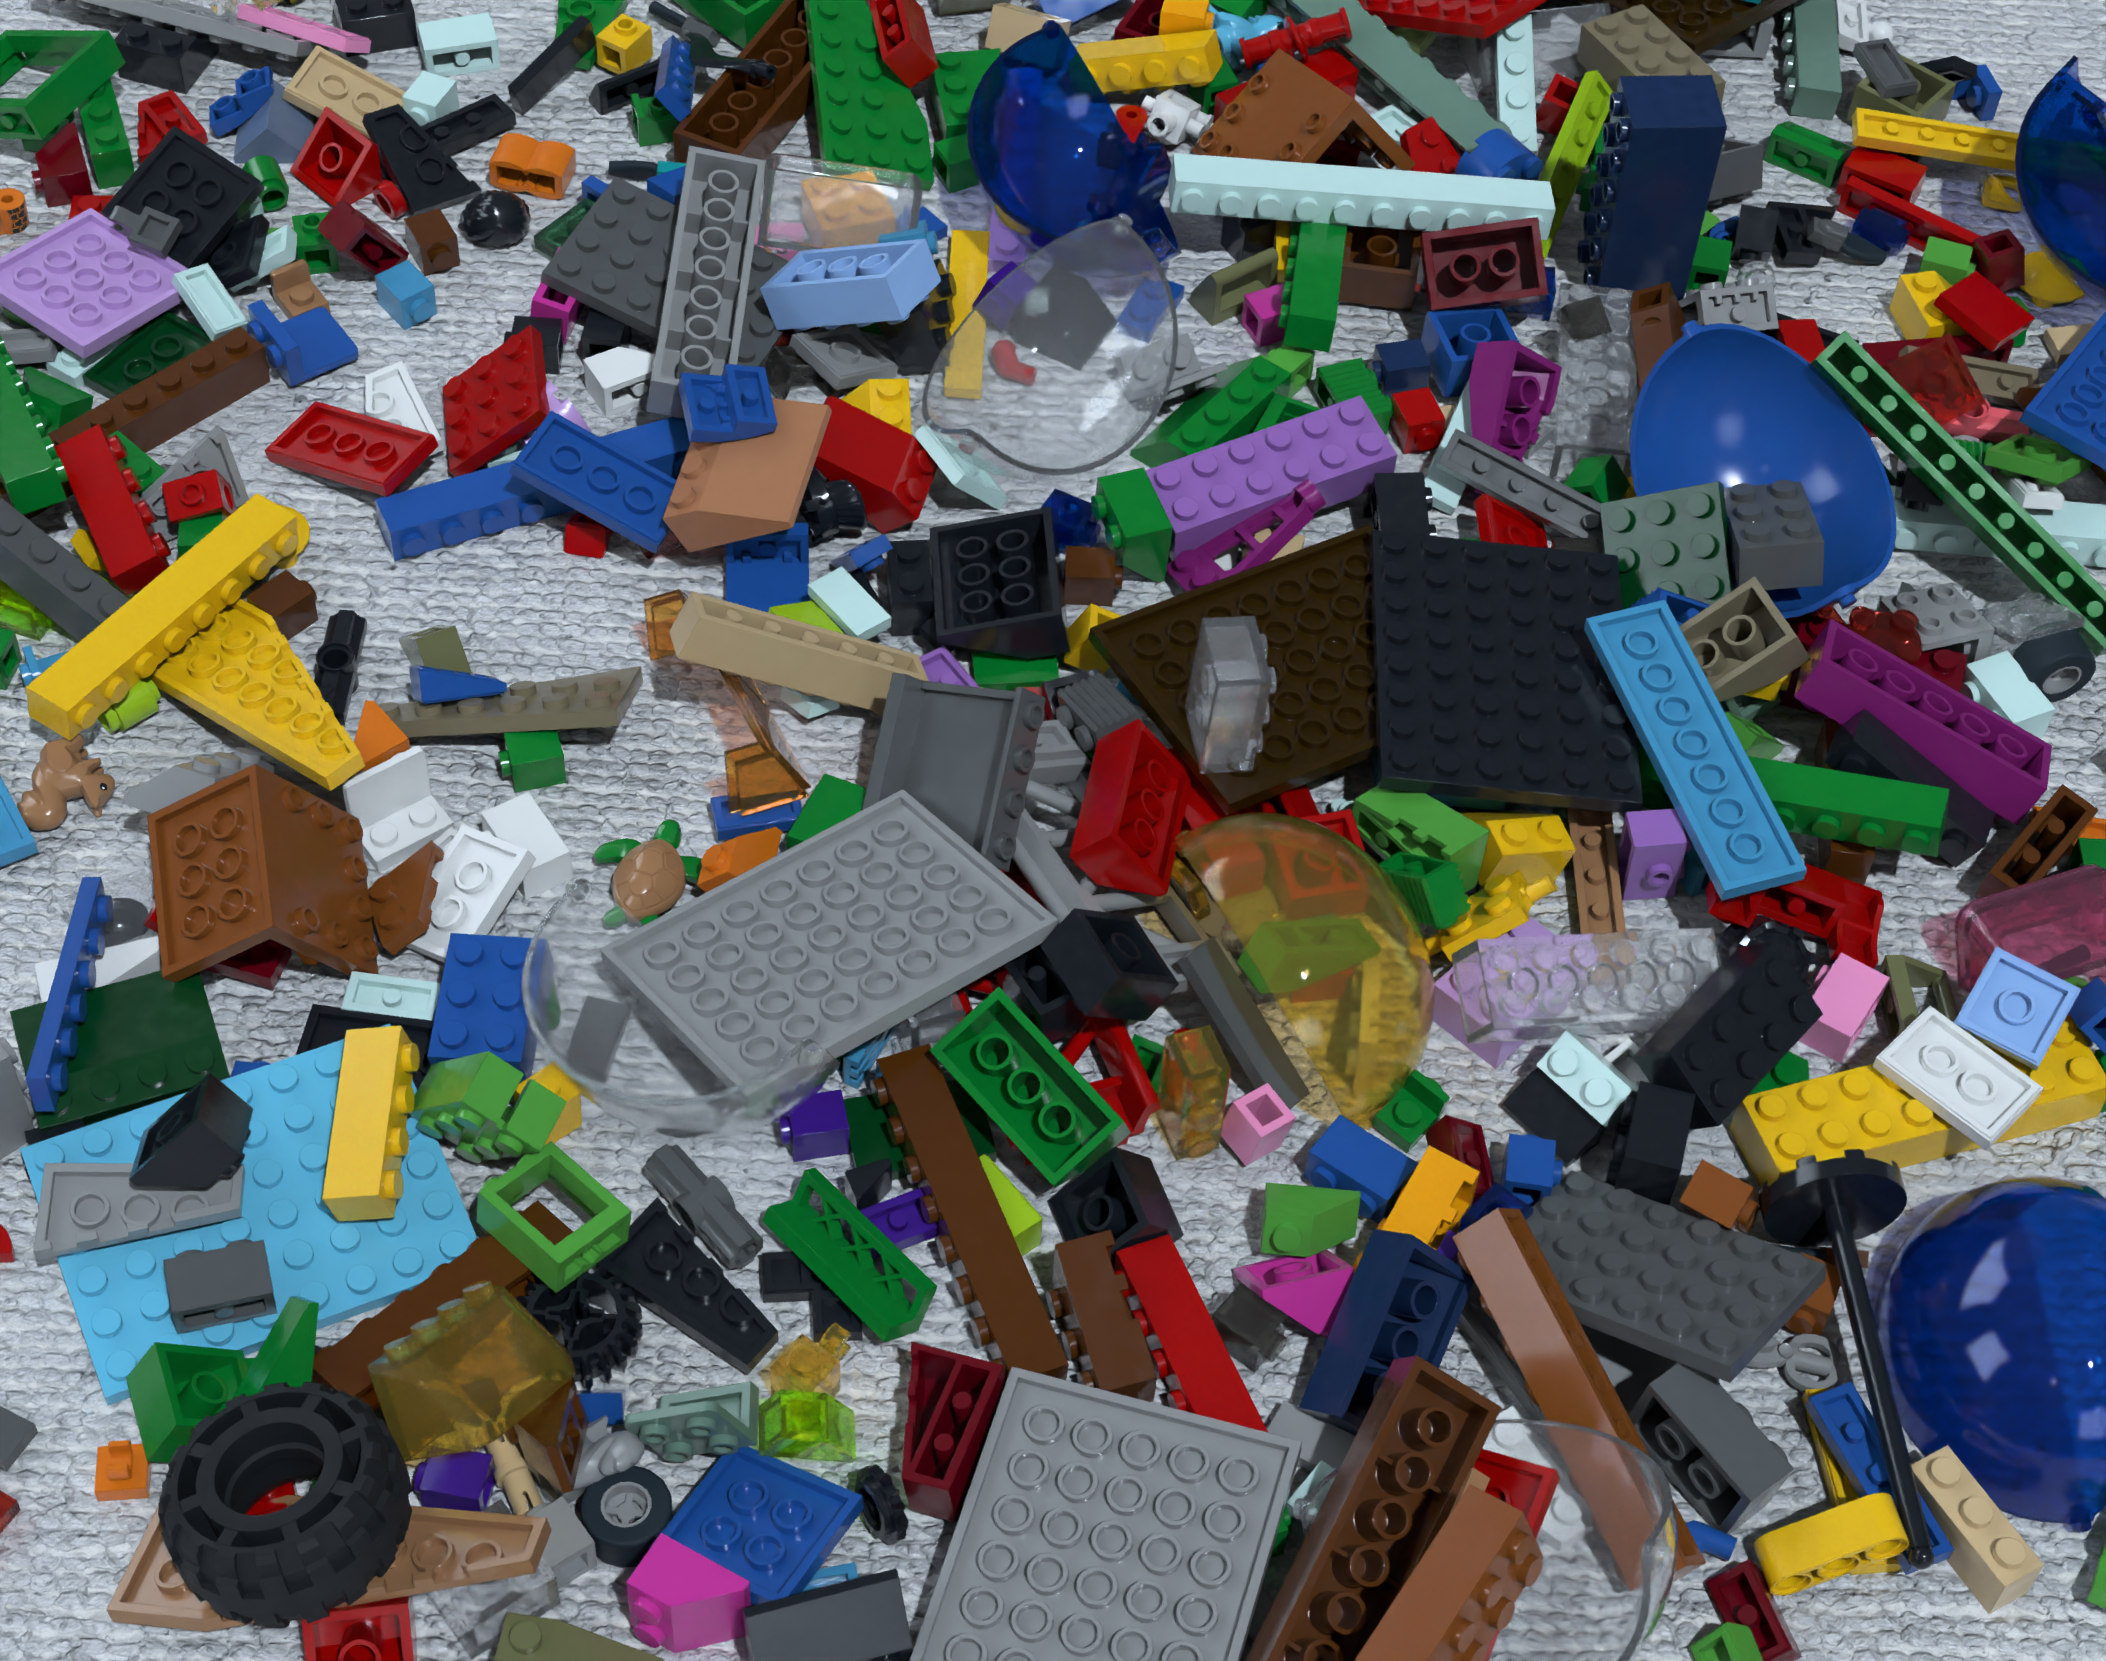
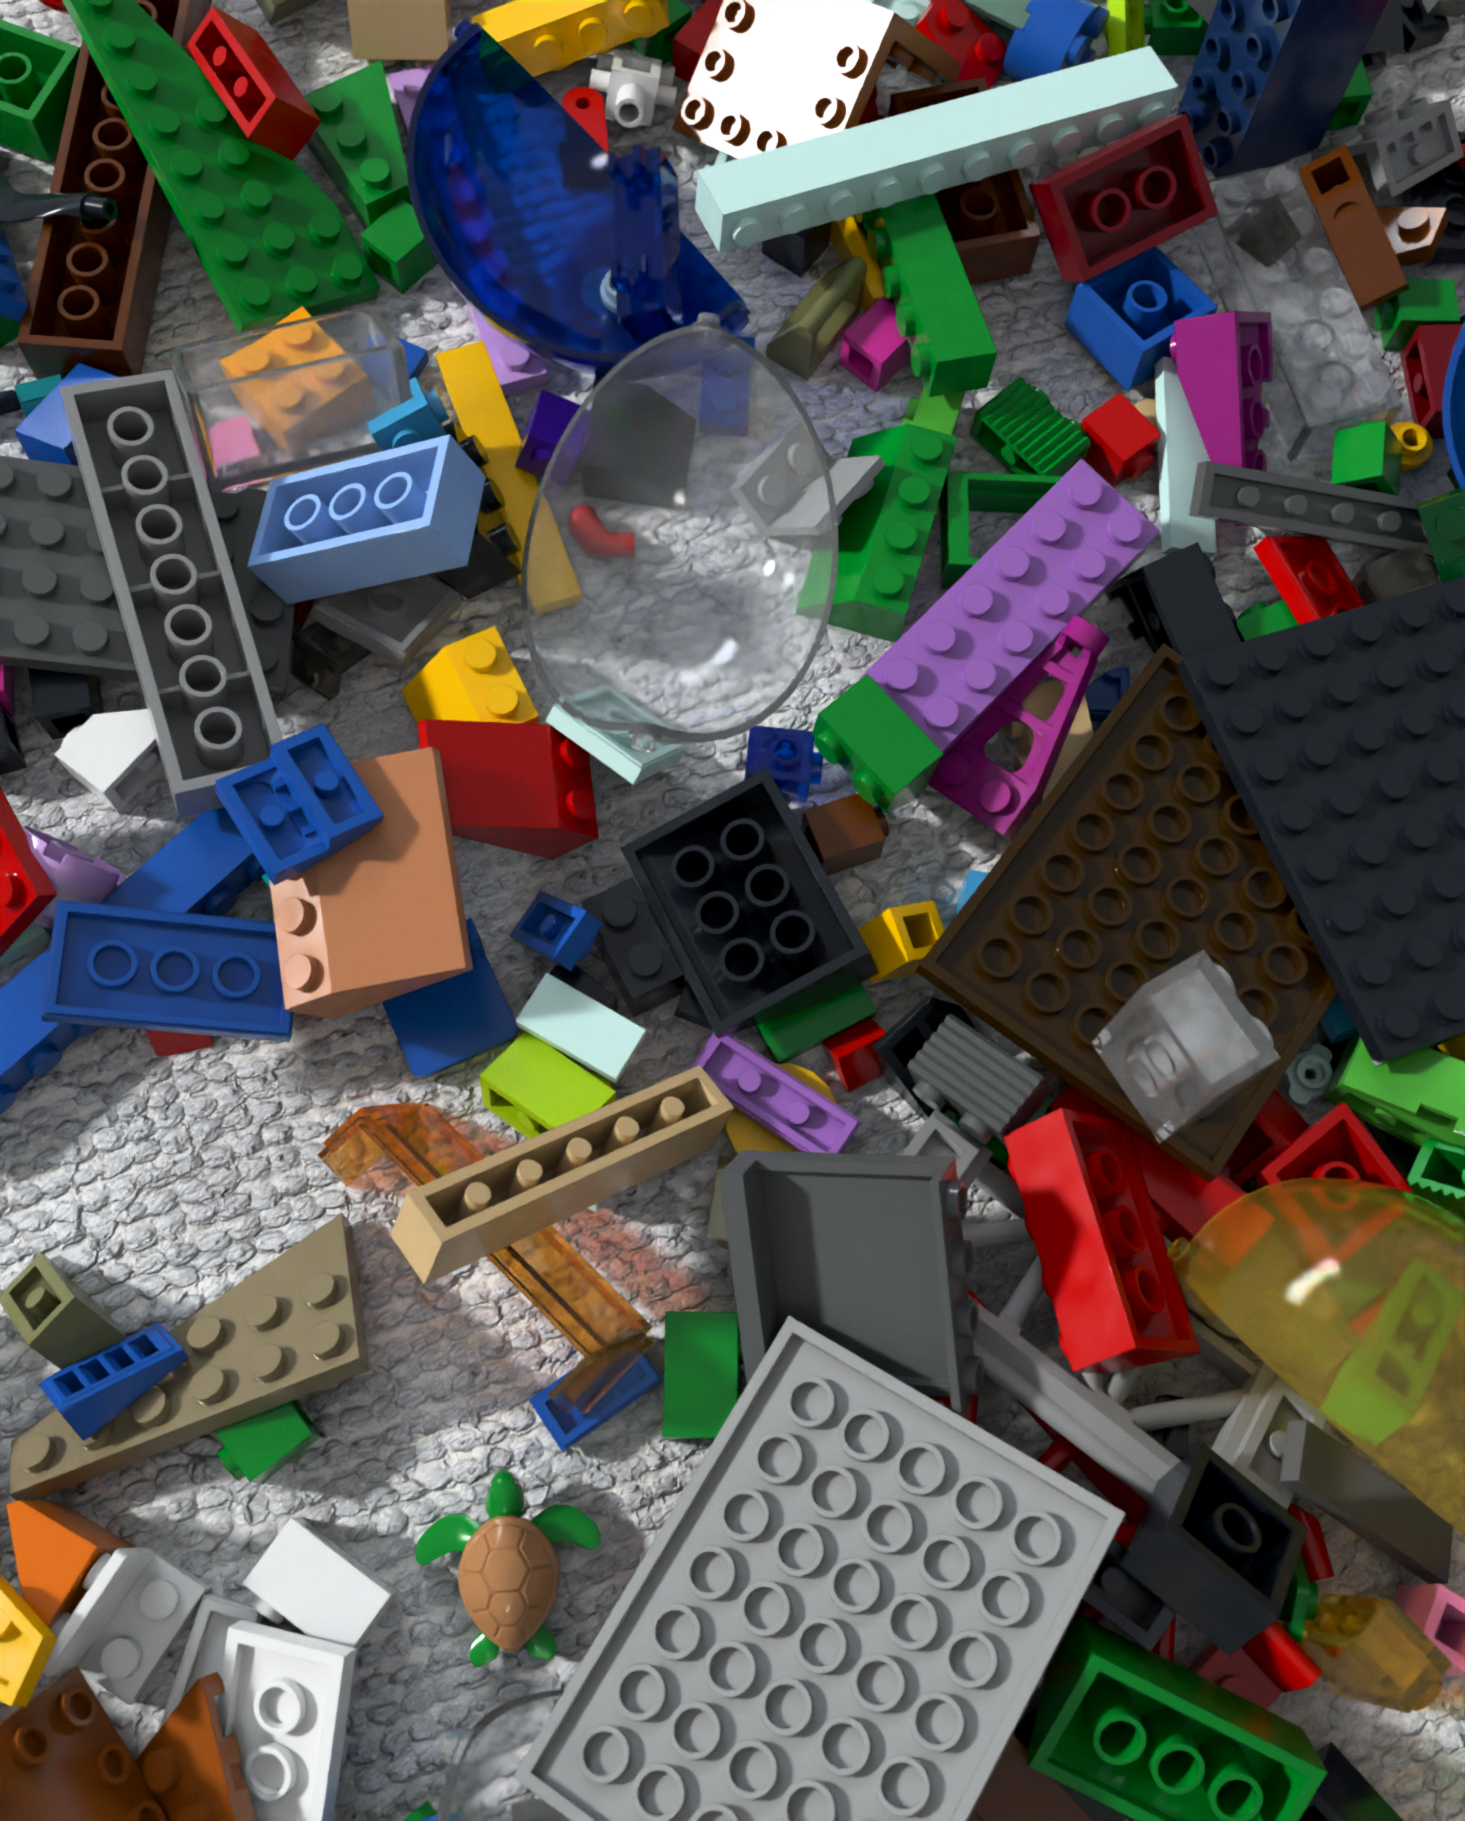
camera: 25 degrees left, 20 degrees up
(737, 856) = (617, 1497): orange slope -> none
(831, 507) = (490, 870): black hair -> none
(1400, 366) = (1066, 367): dark blue brick -> none

